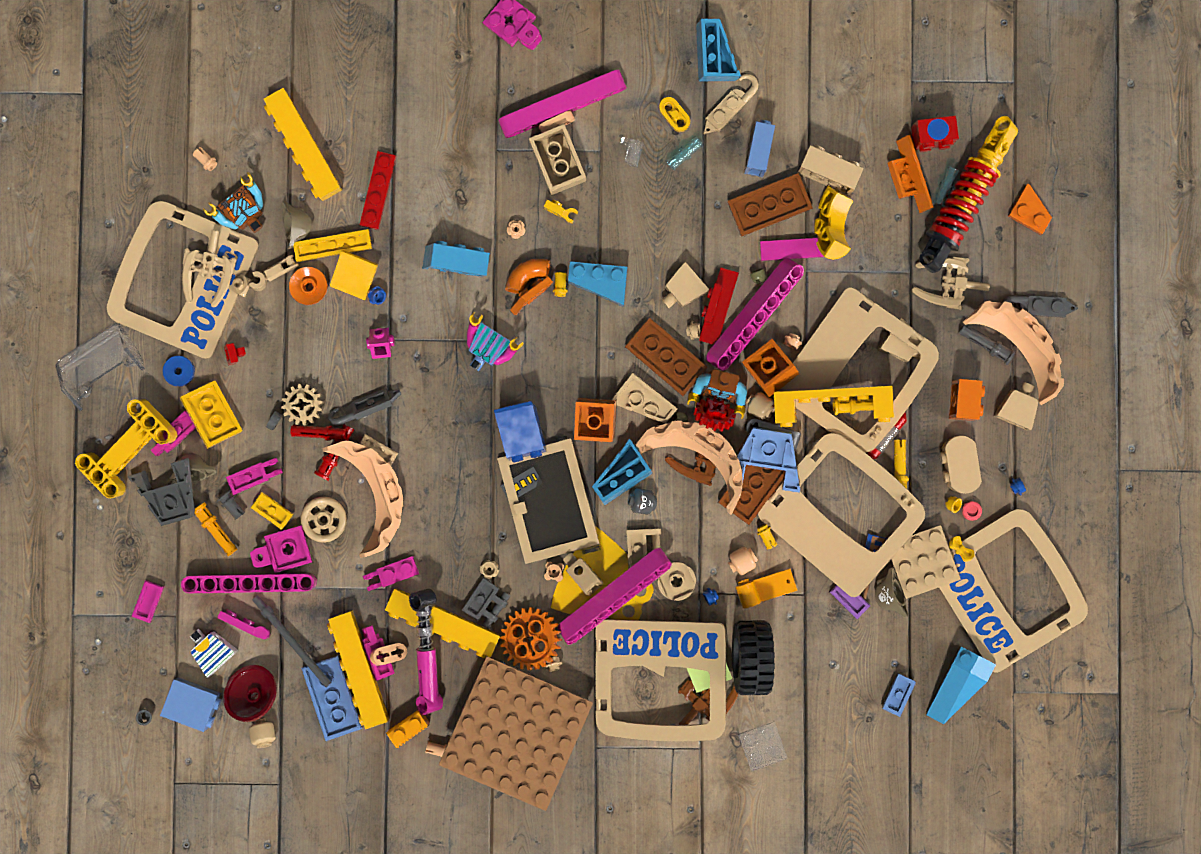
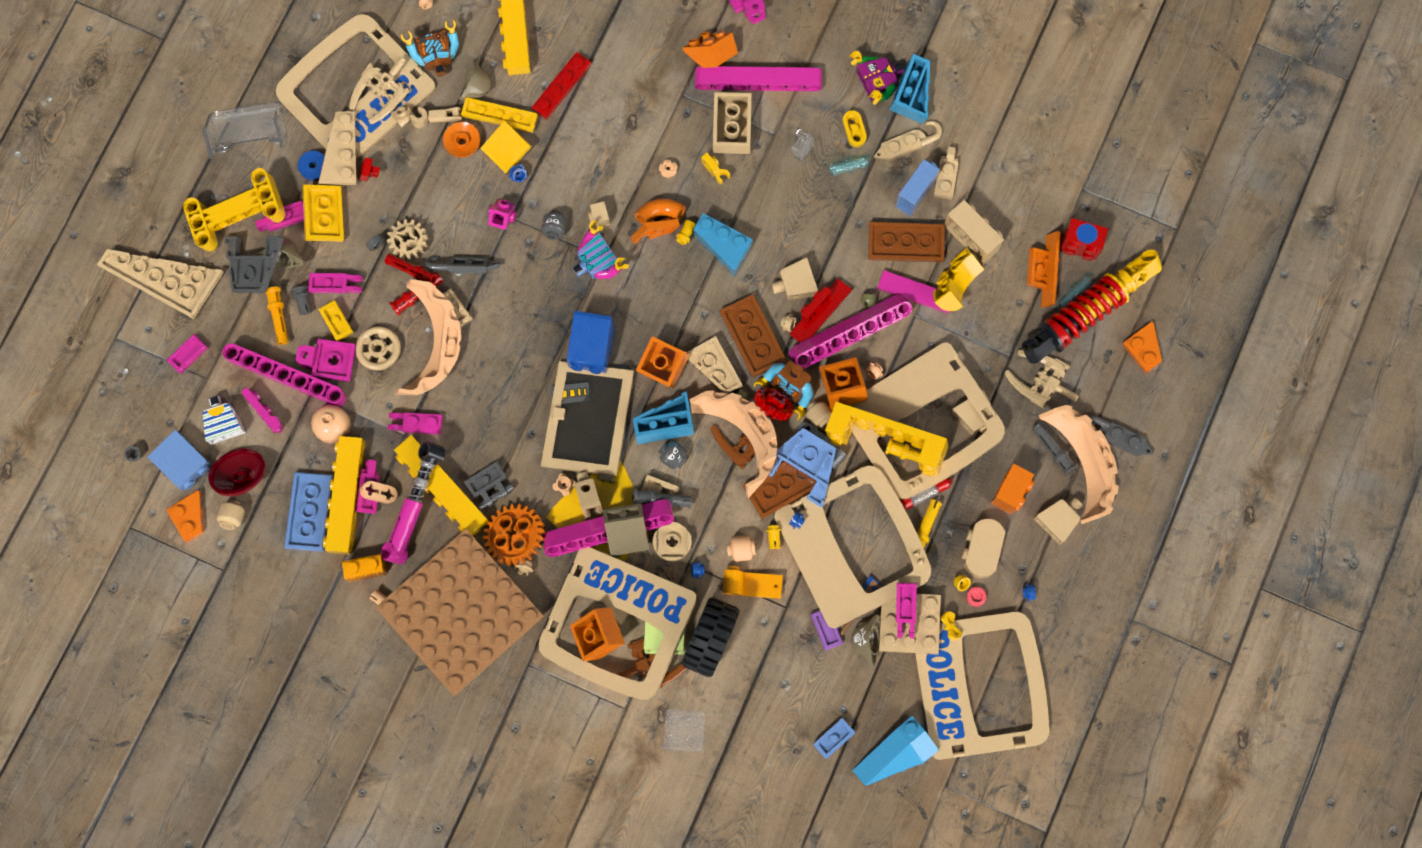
camera: 25 degrees right, 10 degrees down
(100, 541) = (169, 281): none -> tan wing
(200, 350) = (340, 156): none -> tan wing
(223, 751) = (188, 516): none -> orange wing
(268, 612) = (288, 410): dark grey bar -> none
(313, 608) = (330, 423): none -> light nougat cylinder
(434, 331) = (554, 225): none -> dark grey head
(456, 259) = (603, 170): dark azure wedge -> none
(471, 302) = (599, 213): none -> tan plate
(494, 569) = (506, 452): tan plate -> none
(506, 94) = (711, 48): none -> orange slope
(564, 118) = (756, 90): light nougat beam -> none
(631, 592) = (625, 529): none -> dark tan panel
(642, 550) = (645, 497): none -> dark grey pin
(648, 697) = (597, 634): none -> orange brick
(674, 53) = (876, 75): none -> torso
(779, 117) = (947, 175): none -> tan hinge
(782, 513) = (797, 520): none -> blue plate
(915, 551) = (906, 607): none -> dark pink hinge

